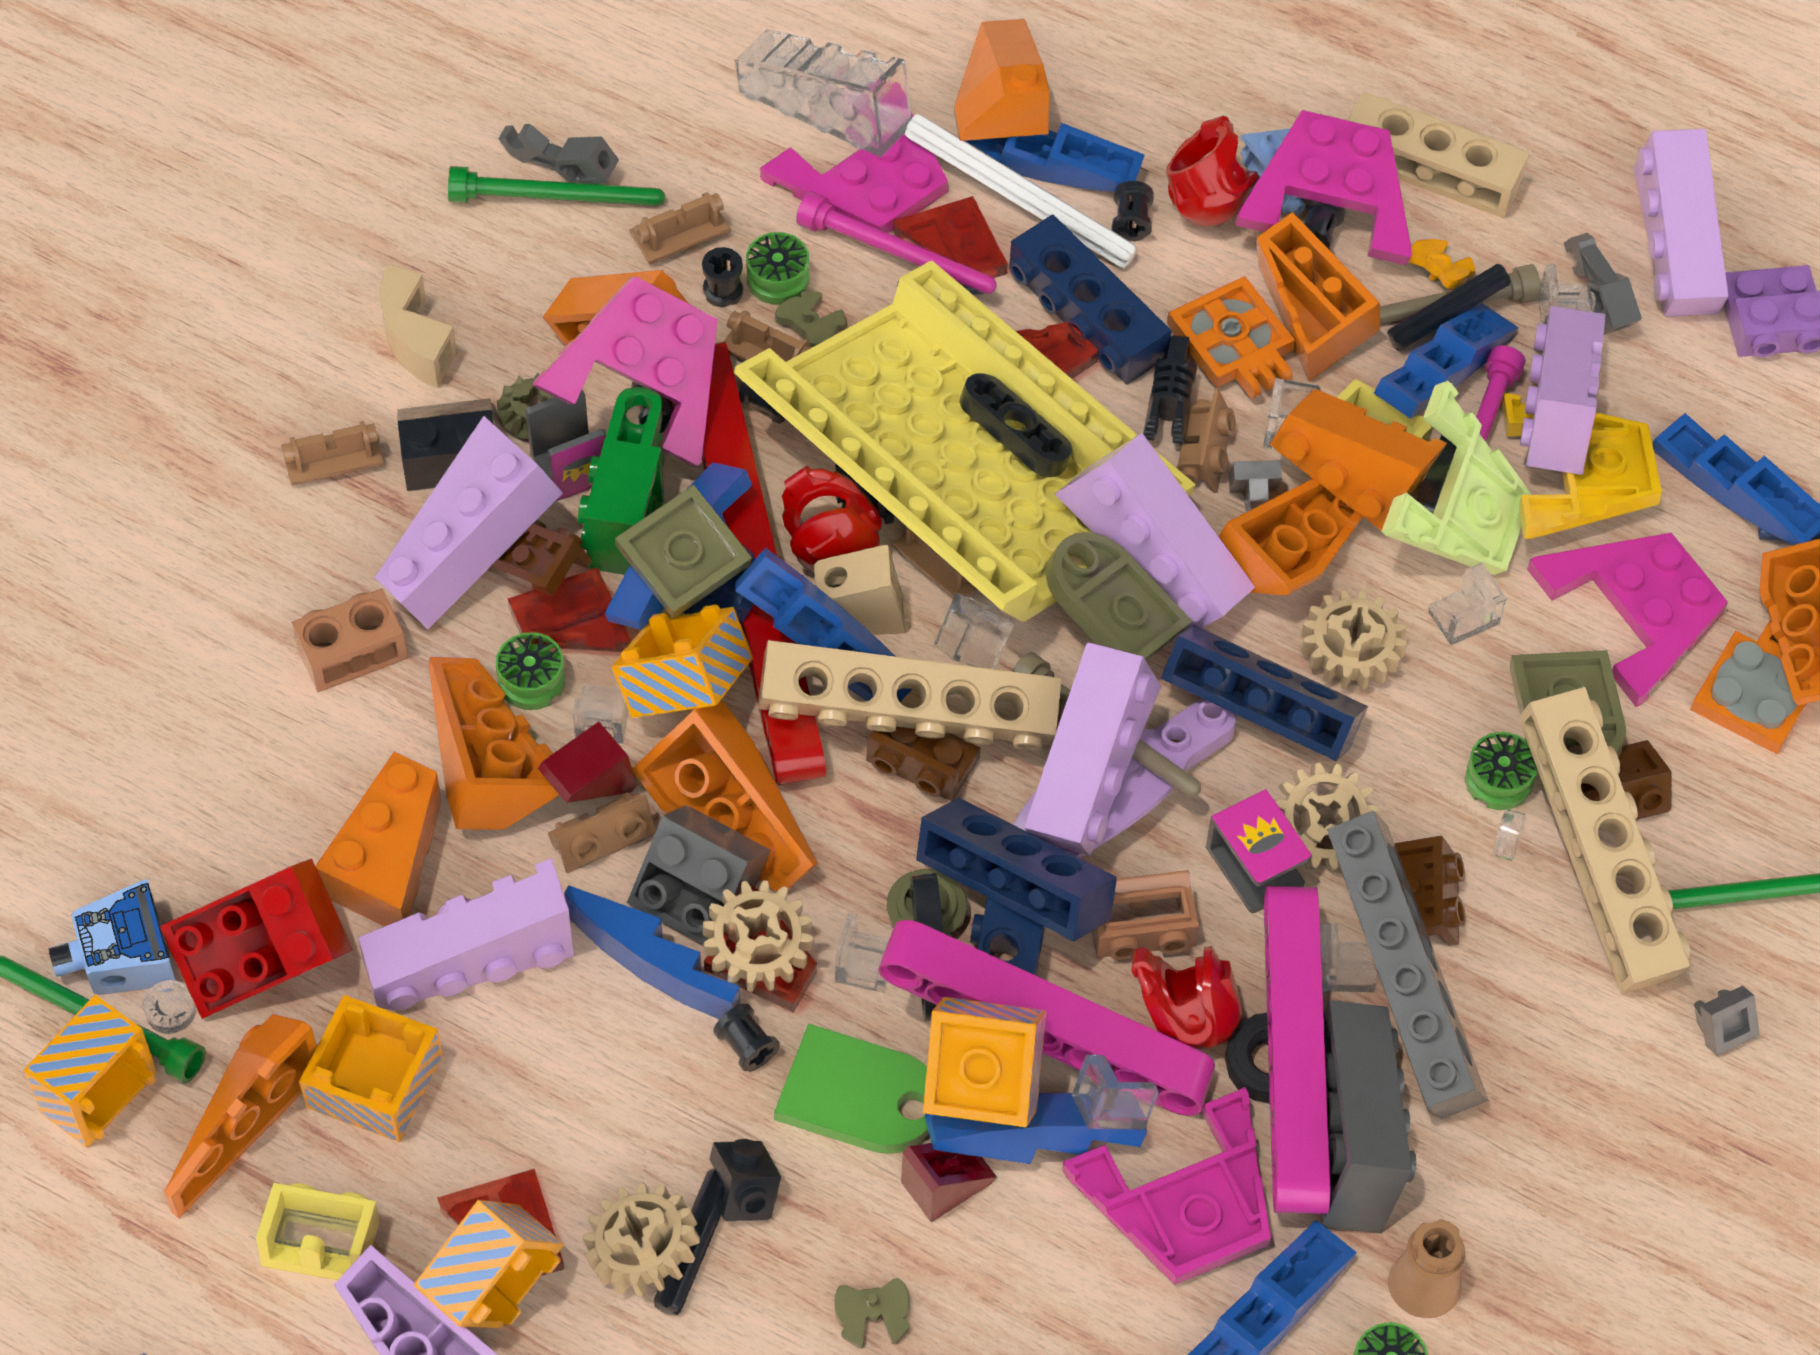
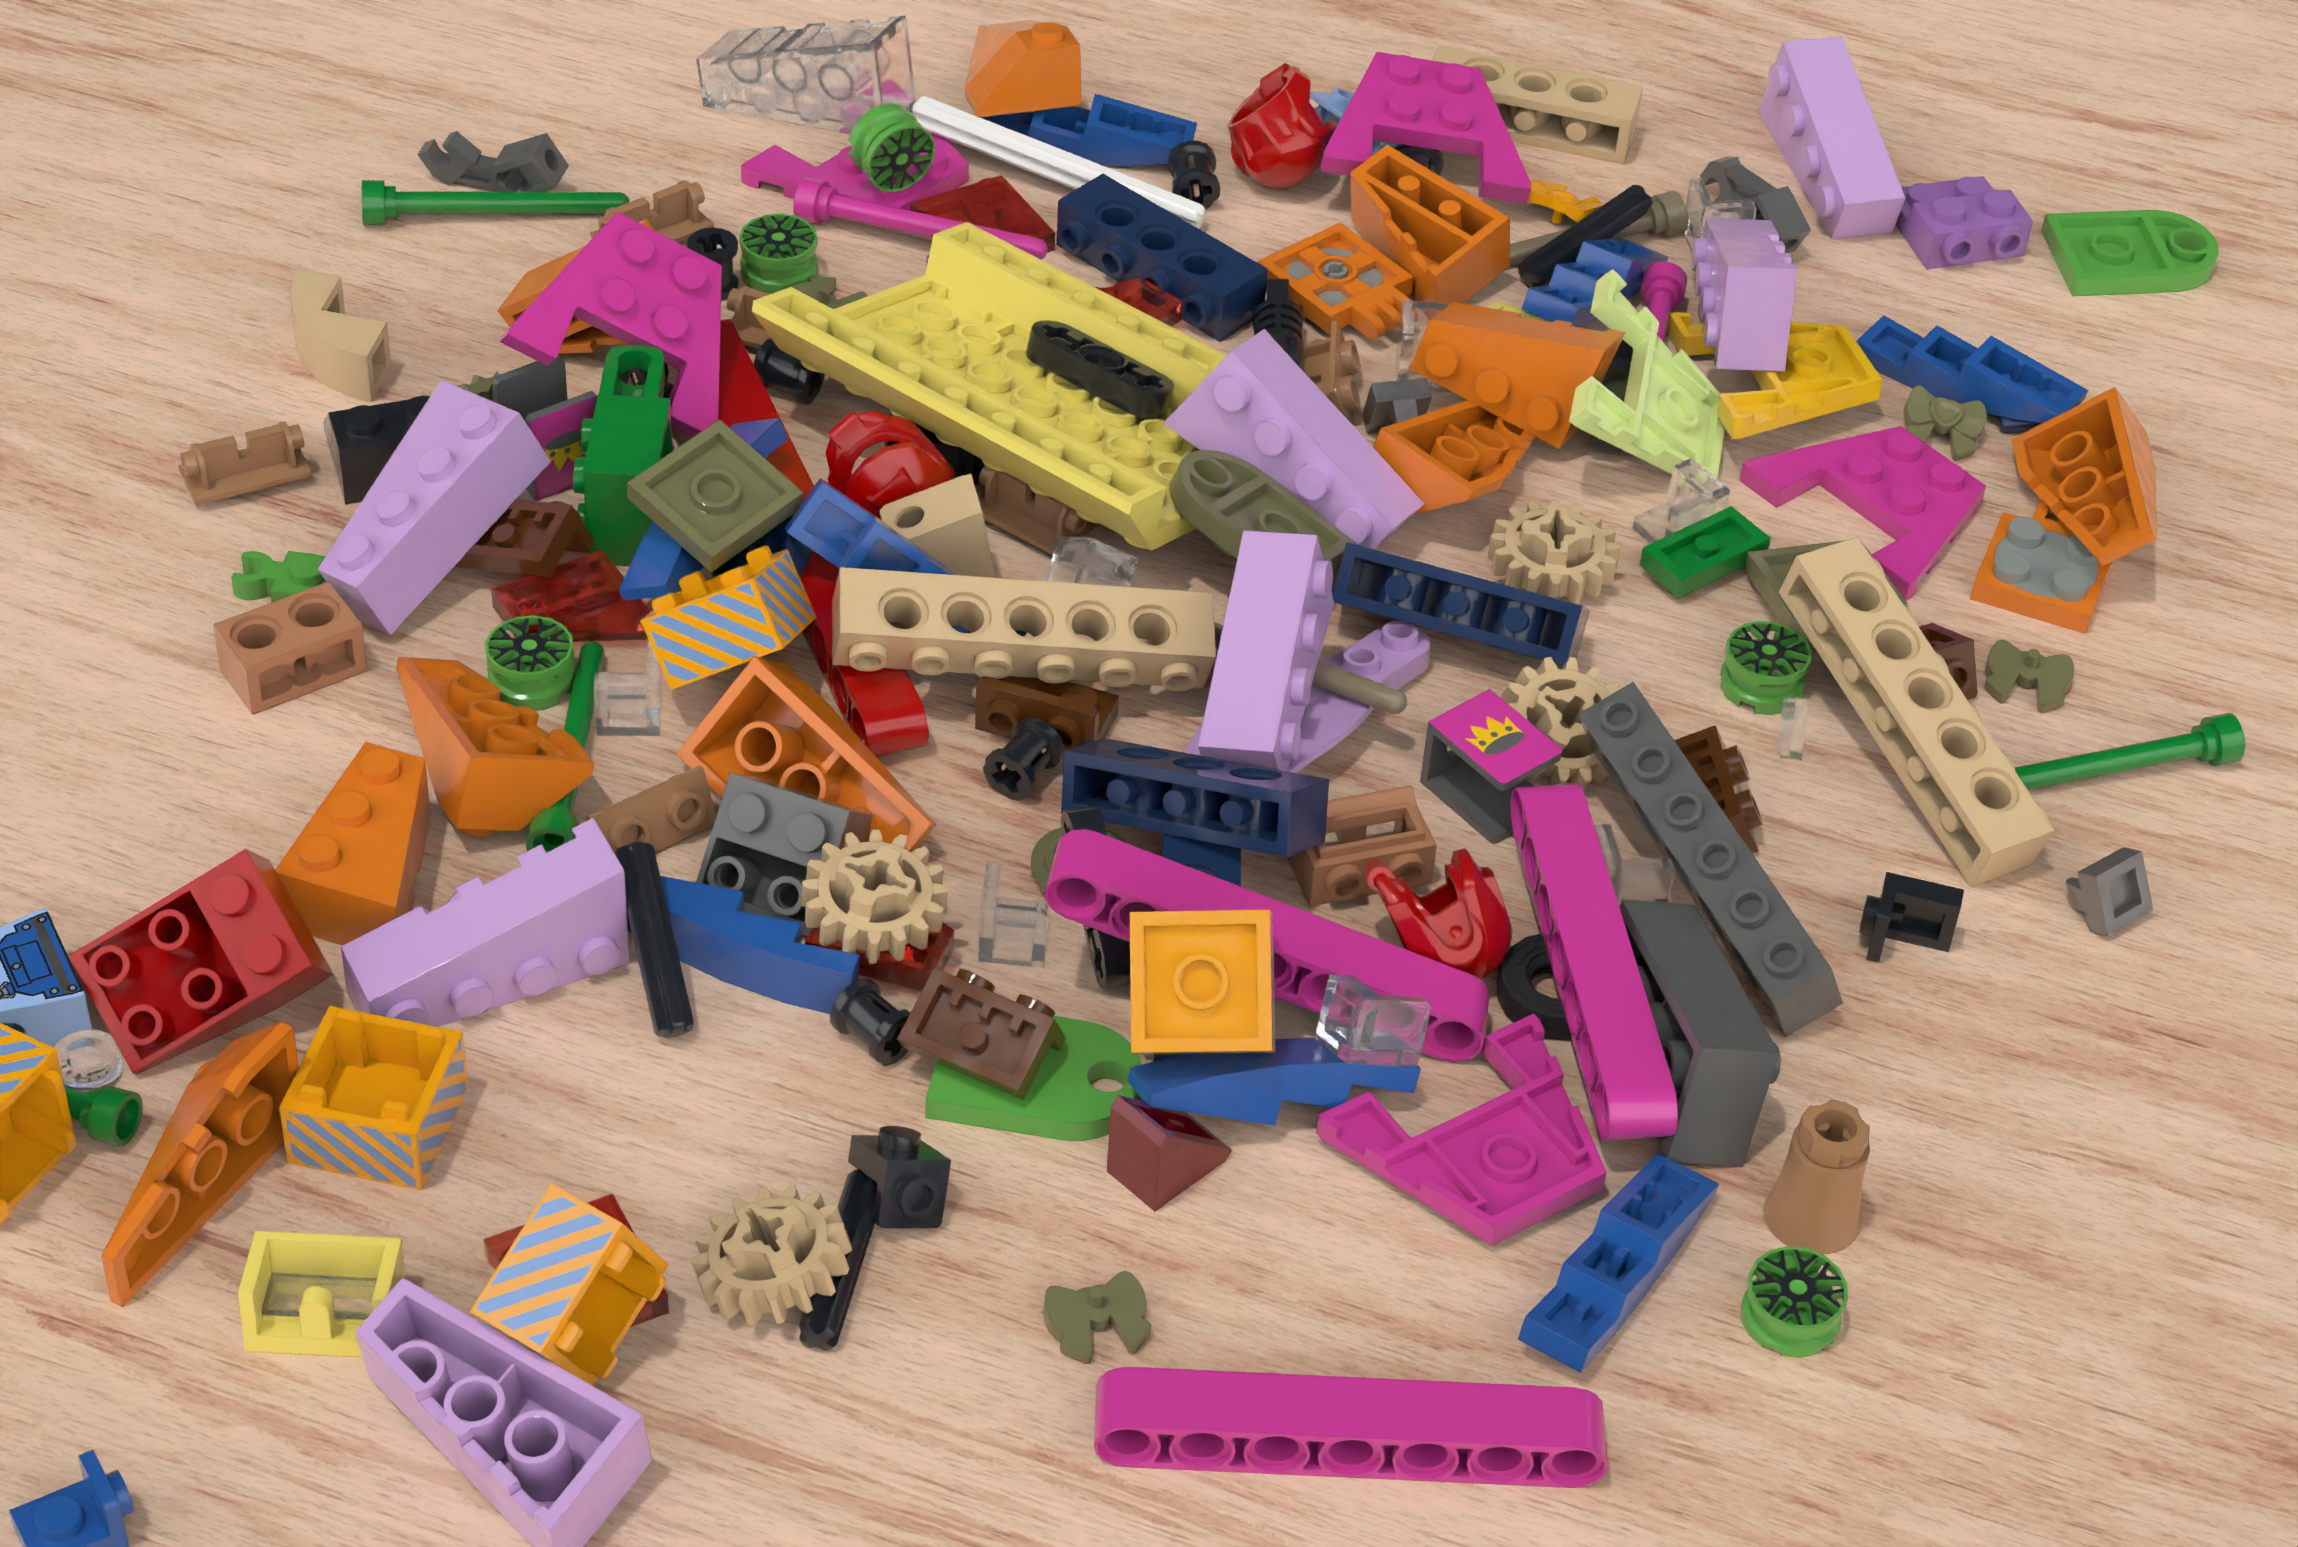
camera: 10 degrees left, 15 degrees down
(354, 568) = (276, 579): none -> bright green plate
(531, 835) = (555, 823): none -> green piece
(589, 767) = (628, 738): dark red slope -> none
(589, 953) = (654, 941): none -> black axle
(820, 1063) = (981, 1032): none -> reddish brown bracket
(878, 175) = (888, 144): none -> bright green wheel
(896, 802) = (1023, 758): none -> black bush
(1477, 648) = (1703, 551): none -> green plate
(1562, 1021) = (1911, 913): none -> black bracket
(1705, 784) = (2029, 669): none -> olive piece
(1724, 530) = (1961, 421): none -> olive piece

